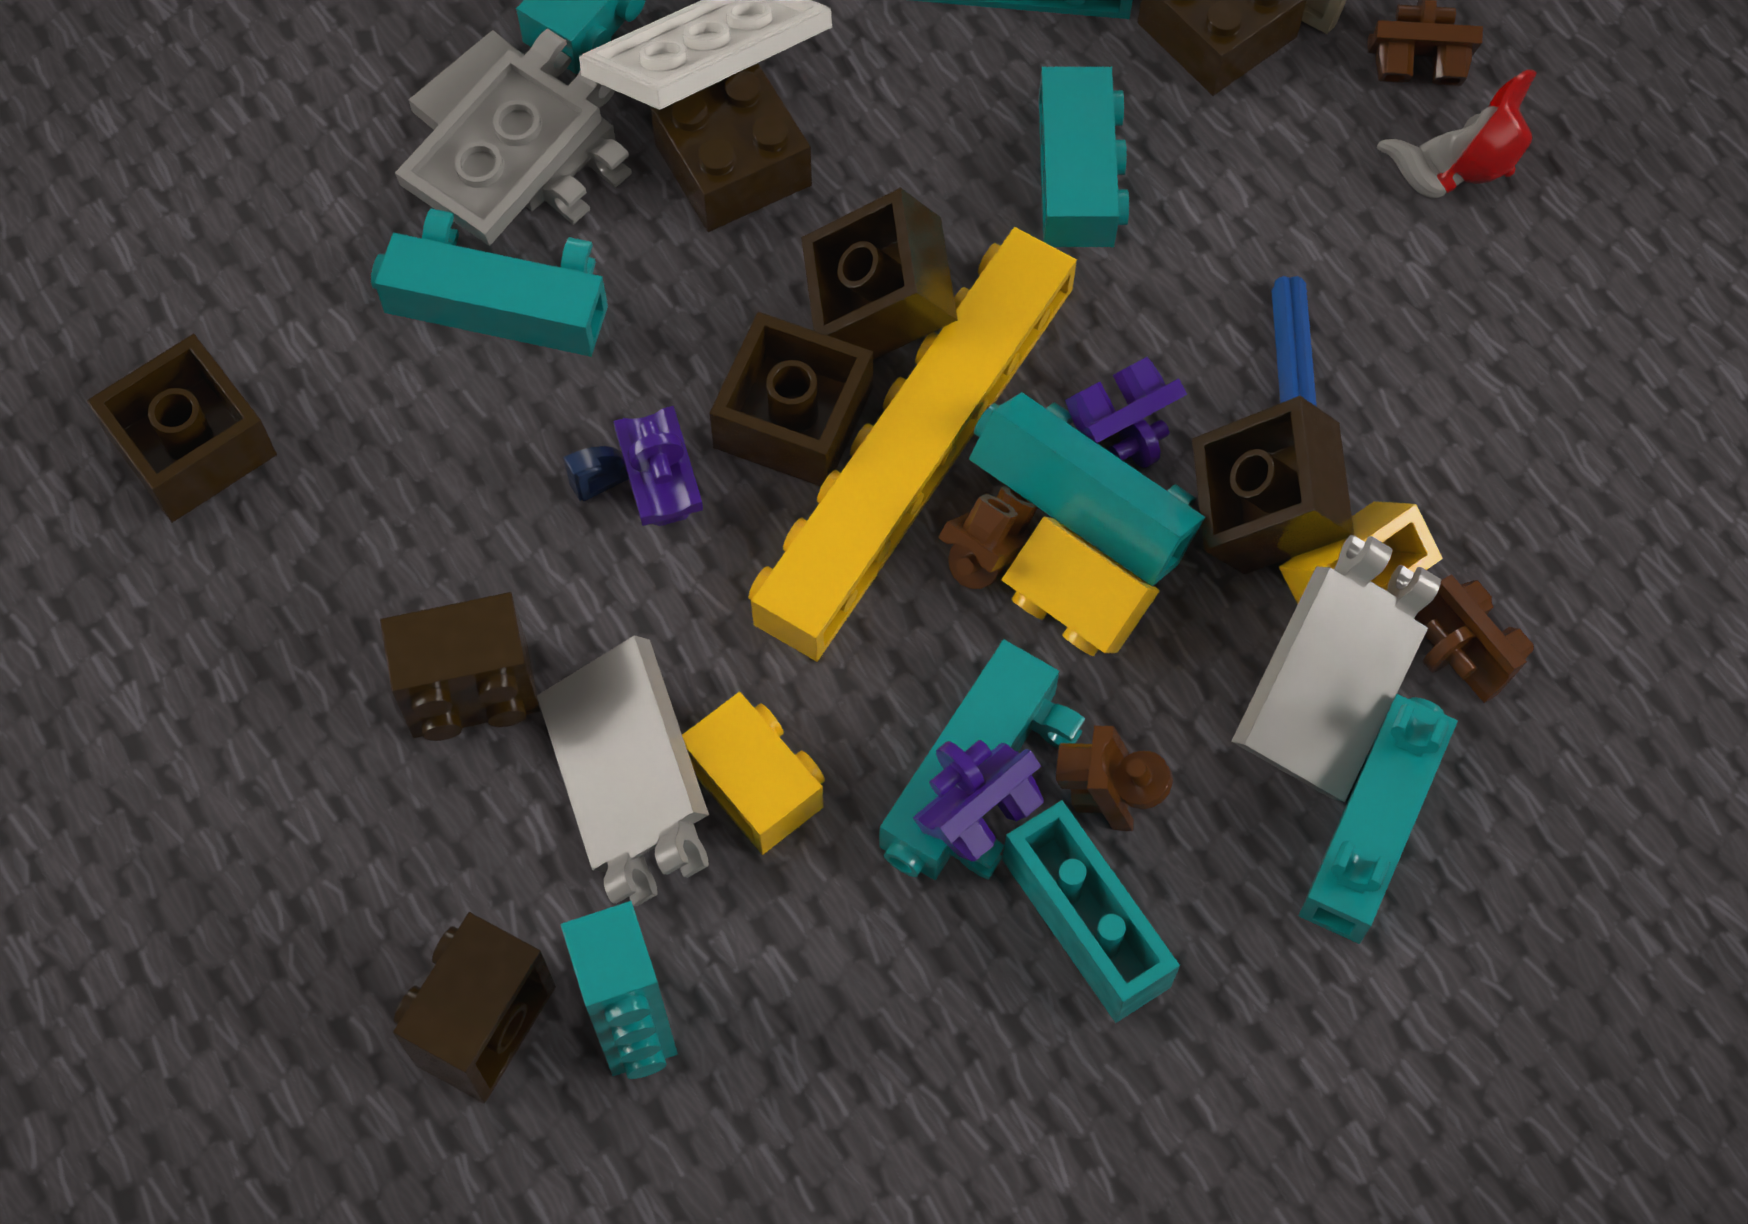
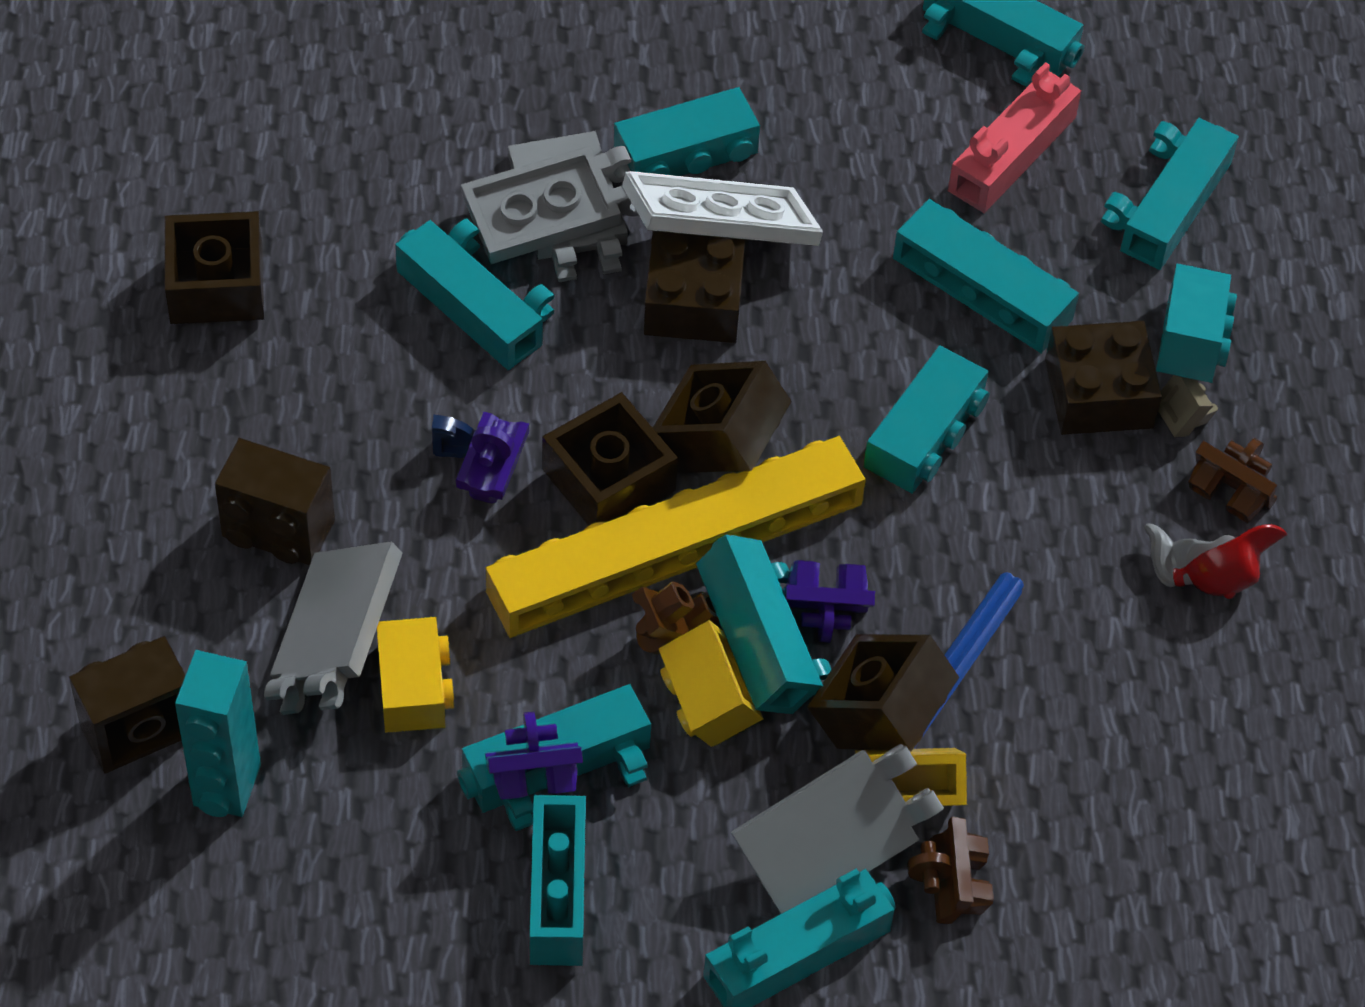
camera: 30 degrees right, 10 degrees down
(1109, 778) = (633, 806): reddish brown hips -> none

